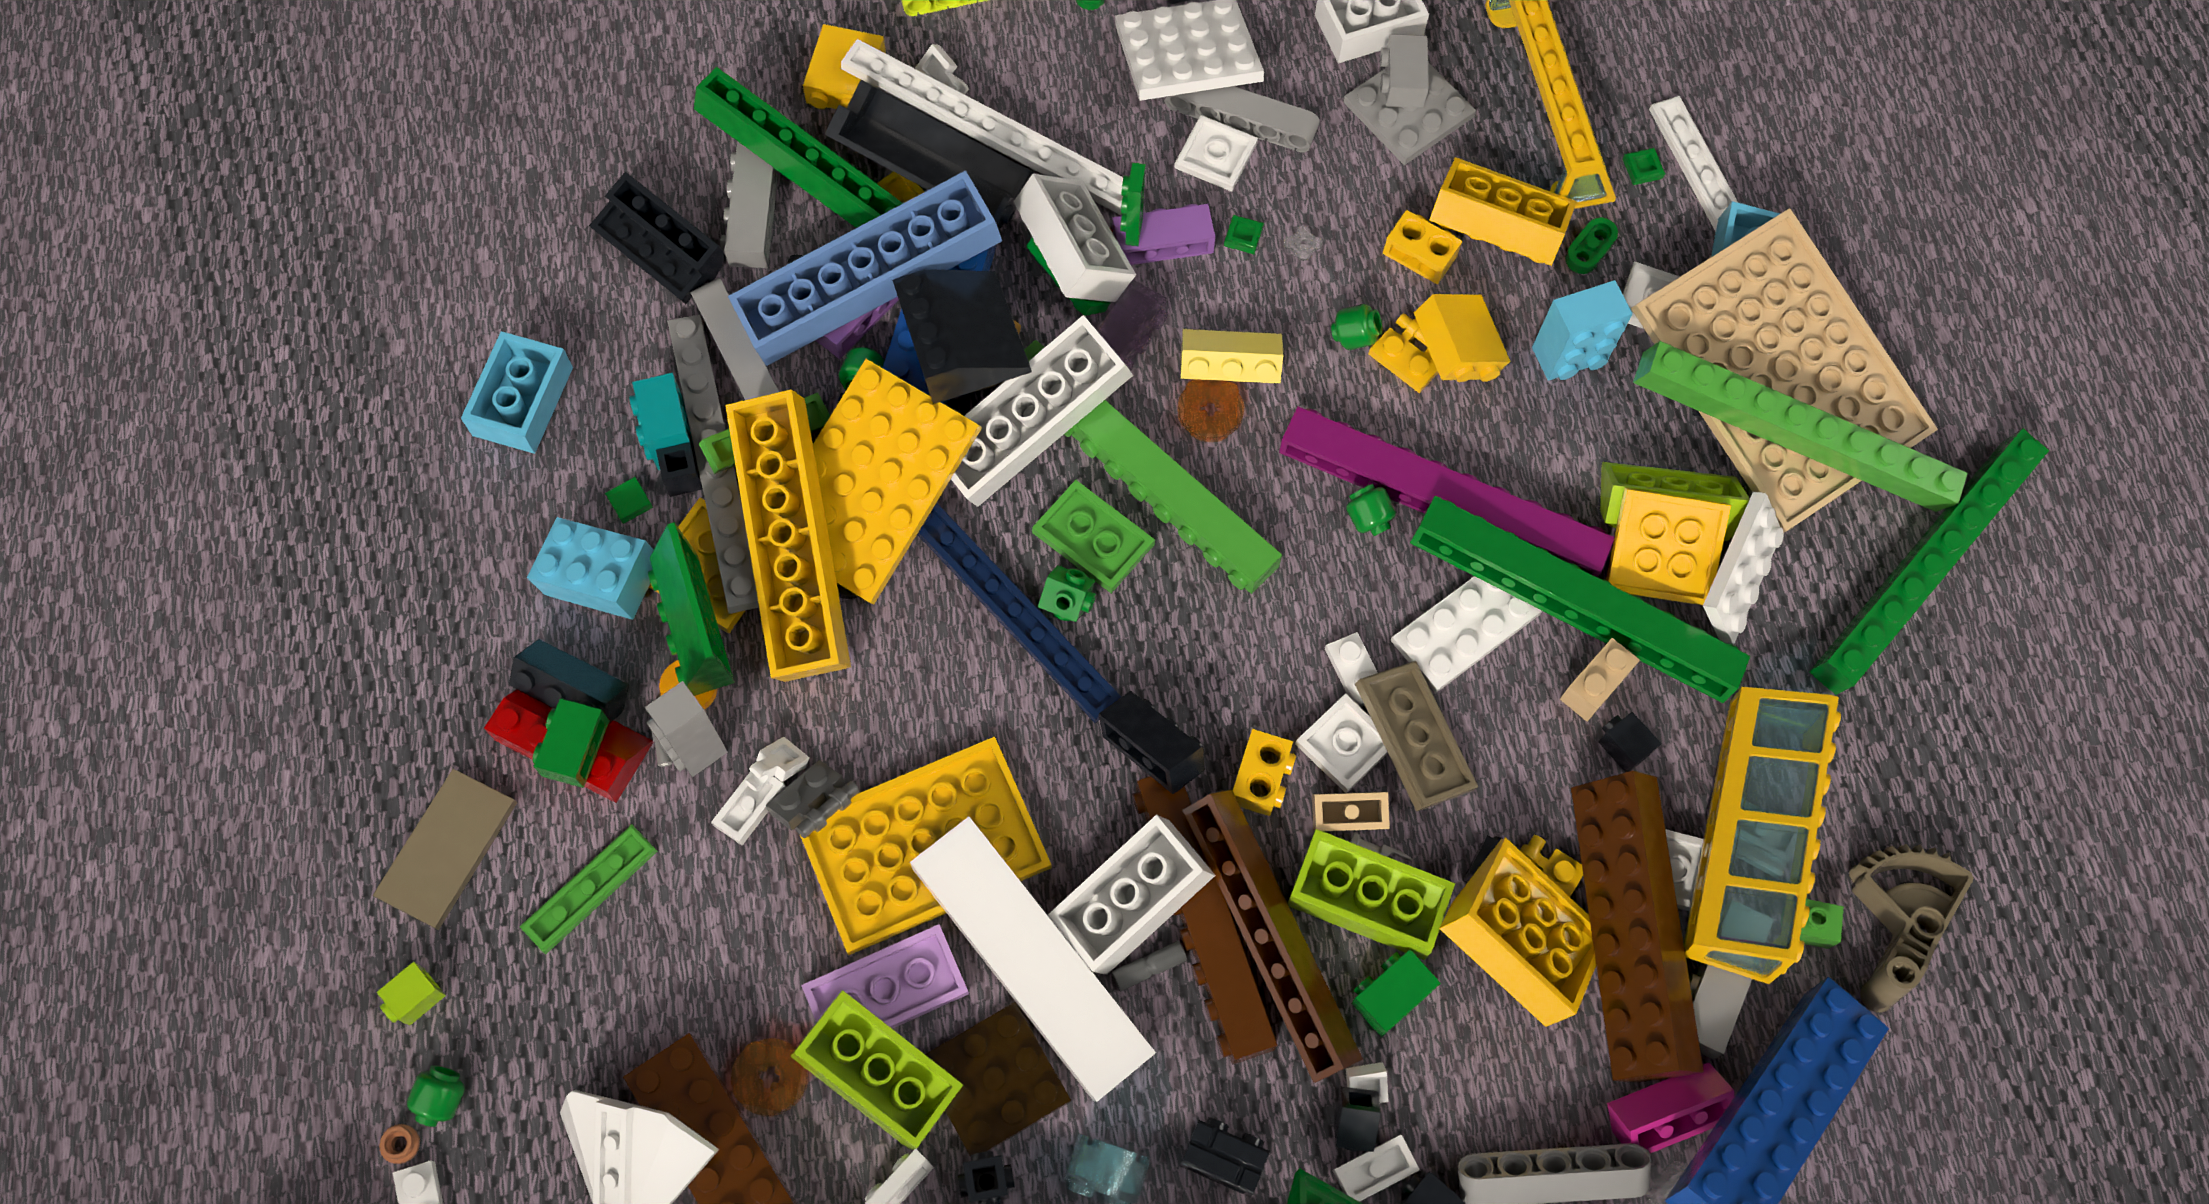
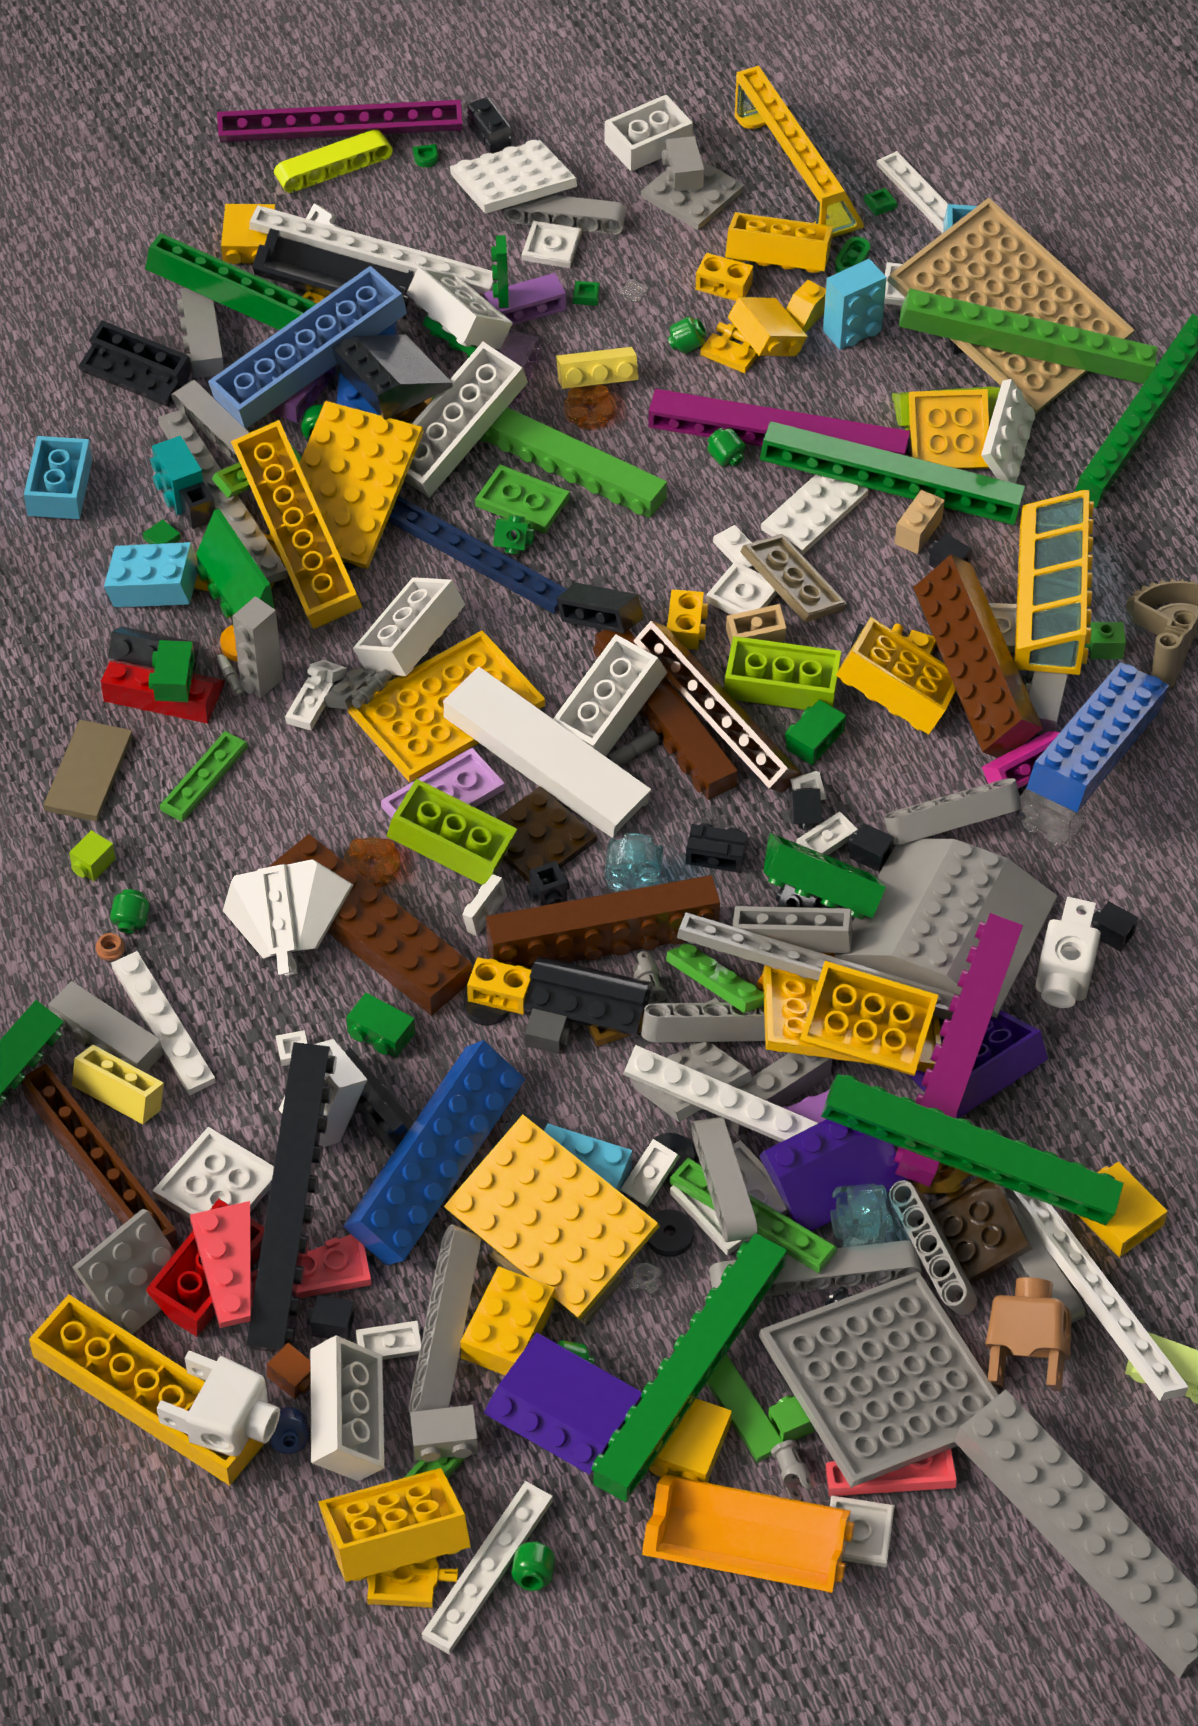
camera: 10 degrees left, 15 degrees down
(899, 719) = (409, 626): none -> white brick
(1519, 311) = (807, 305): none -> yellow slope

